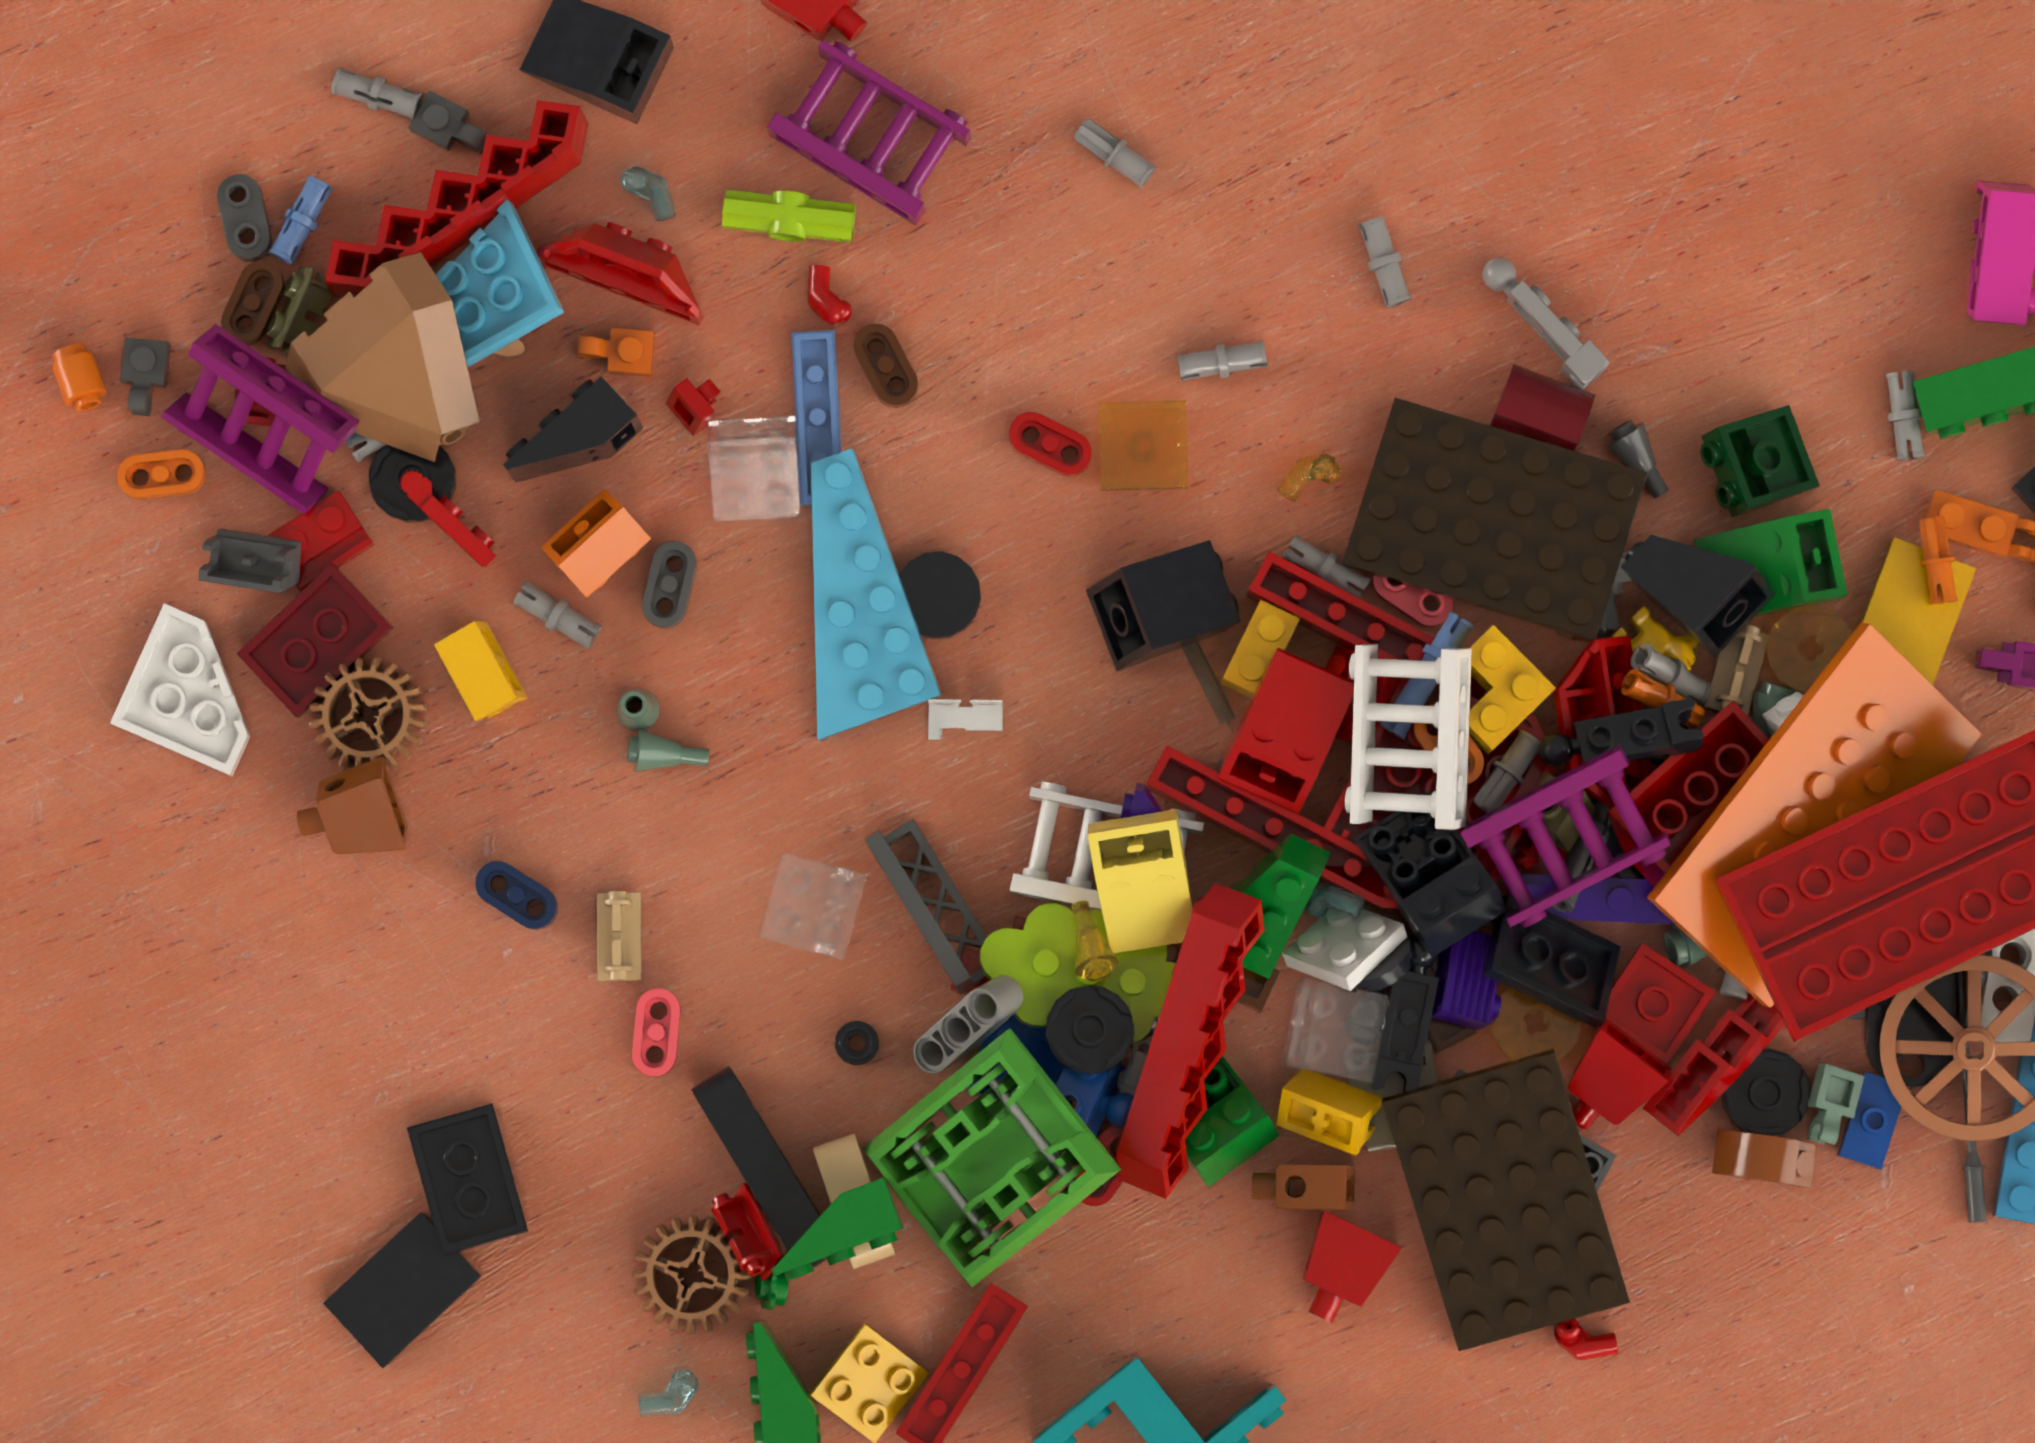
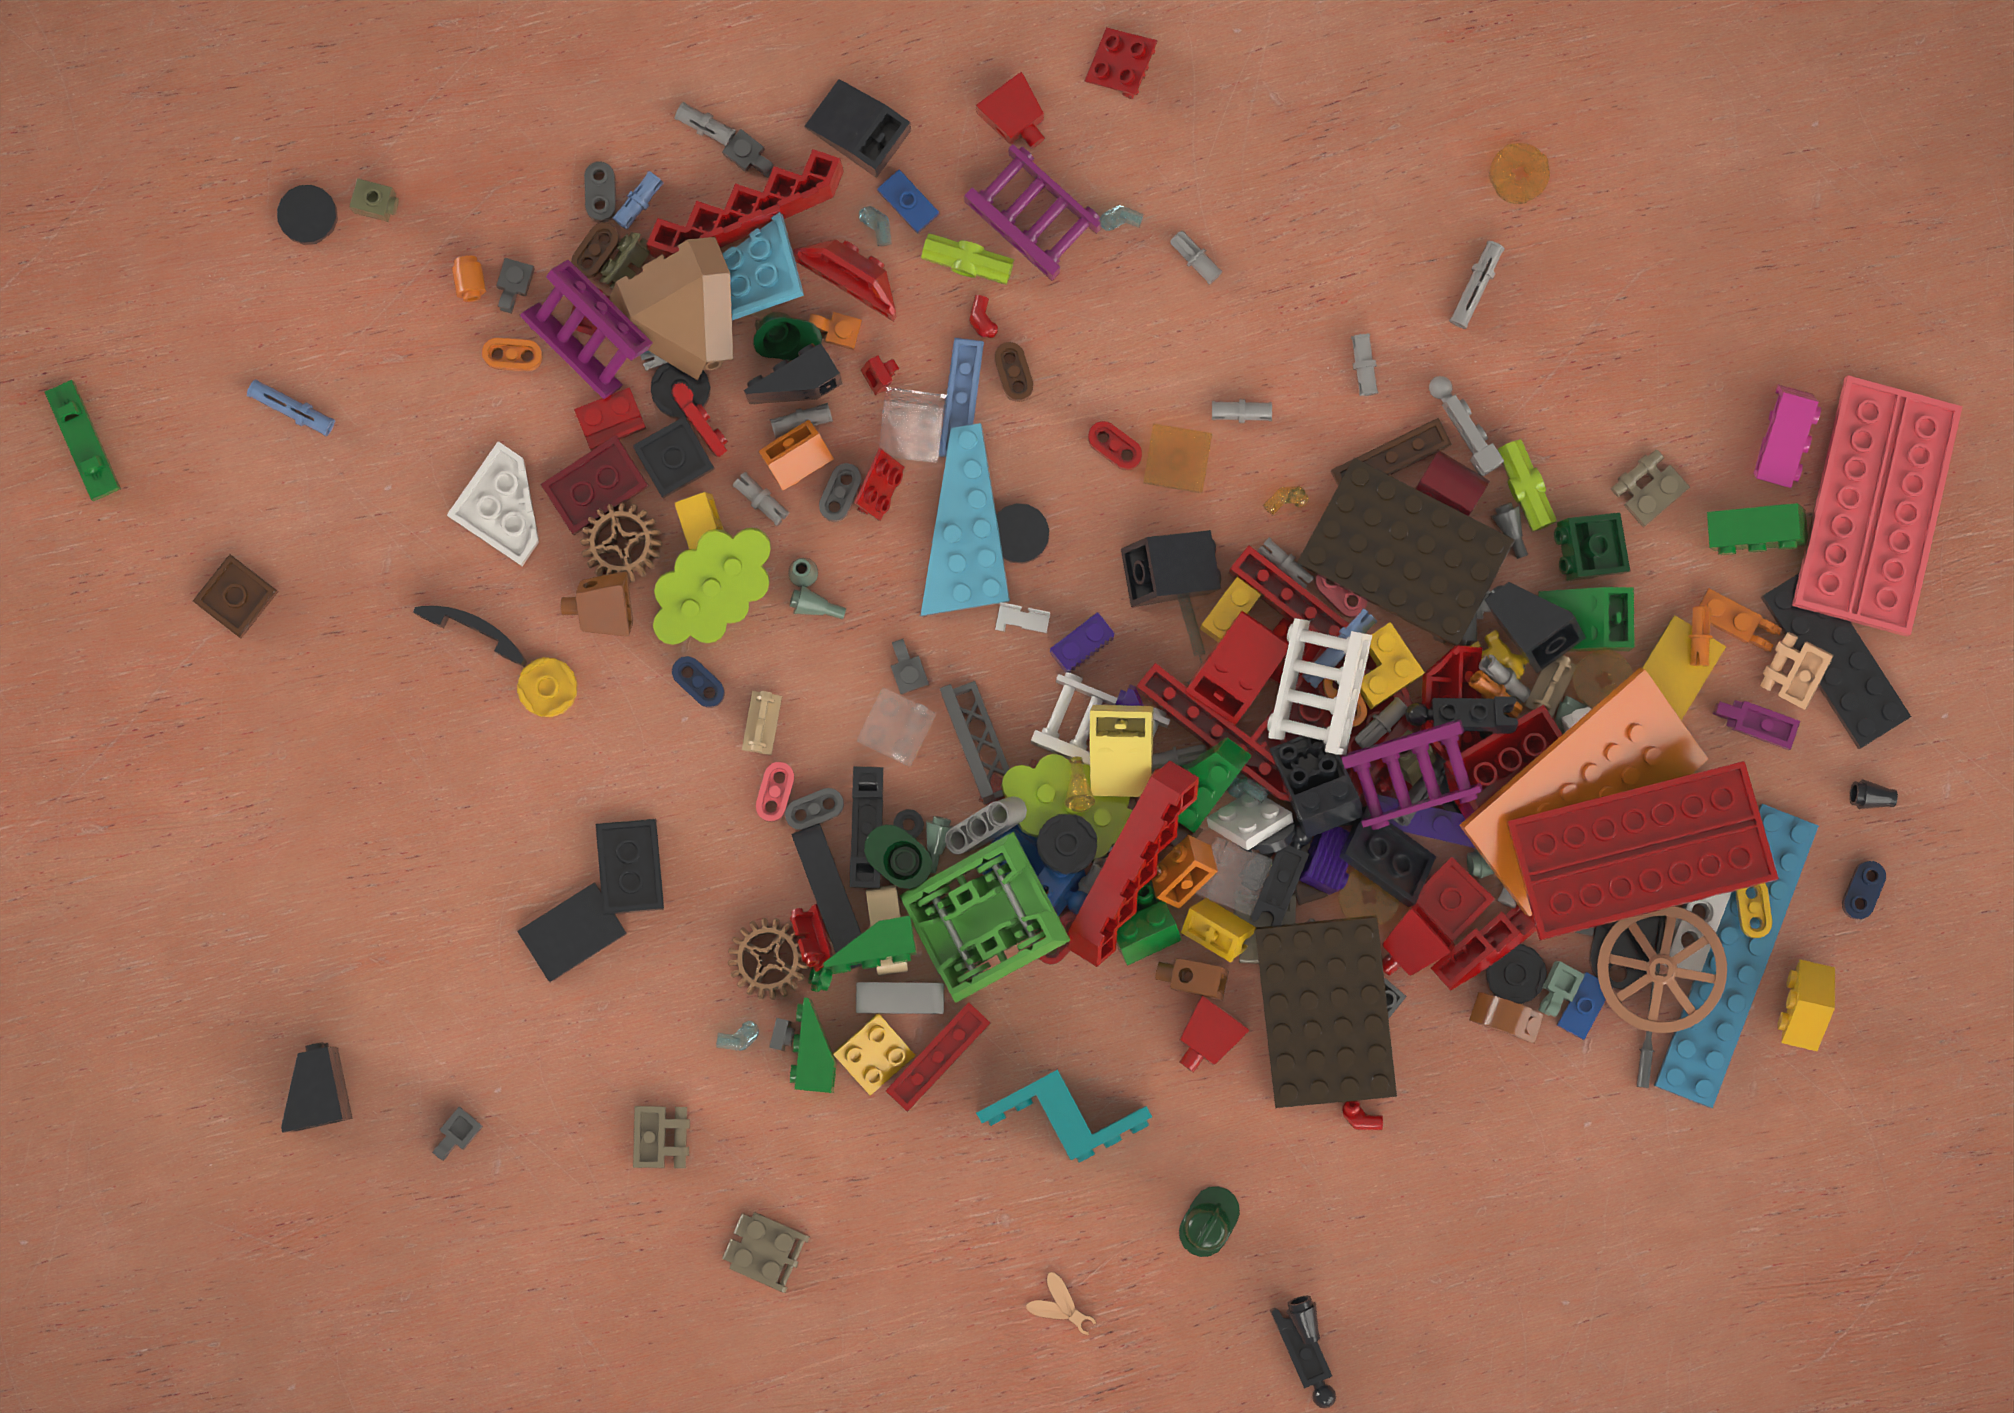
camera: 10 degrees right, 0 degrees up
(128, 870) = (440, 615): none -> black slope
(252, 561) = (562, 423): dark grey hinge -> none
(301, 943) = (547, 687): none -> yellow tile
(420, 579) = (673, 457): none -> black plate
(510, 753) = (712, 586): none -> lime plate
(546, 376) = (783, 336): none -> dark green piece
(614, 480) = (817, 416): none -> light grey pin
(688, 149) = (908, 201): none -> blue plate
(717, 1045) = (814, 808): none -> dark grey plate
(724, 564) = (879, 485): none -> red hinge
(732, 1381) = (782, 1035): none -> dark grey plate
(797, 1059) = (866, 816): none -> black slope
(816, 823) = (908, 672): none -> dark grey plate
(850, 1093) = (898, 856): none -> dark green piece
(891, 1295) = (899, 998): none -> light grey beam
(900, 1059) = (936, 835): none -> sand green cone
(994, 114) = (1119, 215): none -> clear light blue arm
(1057, 736) = (1082, 643): none -> dark purple brick
(1223, 873) = (1179, 757): none -> light grey axle
(1265, 1037) = (1184, 871): none -> orange brick
(1461, 375) = (1403, 450): none -> reddish brown tile
(1527, 101) = (1490, 258): none -> light grey pin
(1649, 391) = (1527, 485): none -> lime piece
(1834, 372) = (1656, 495): none -> dark tan plate
(1905, 415) = (1697, 534): light grey pin -> none

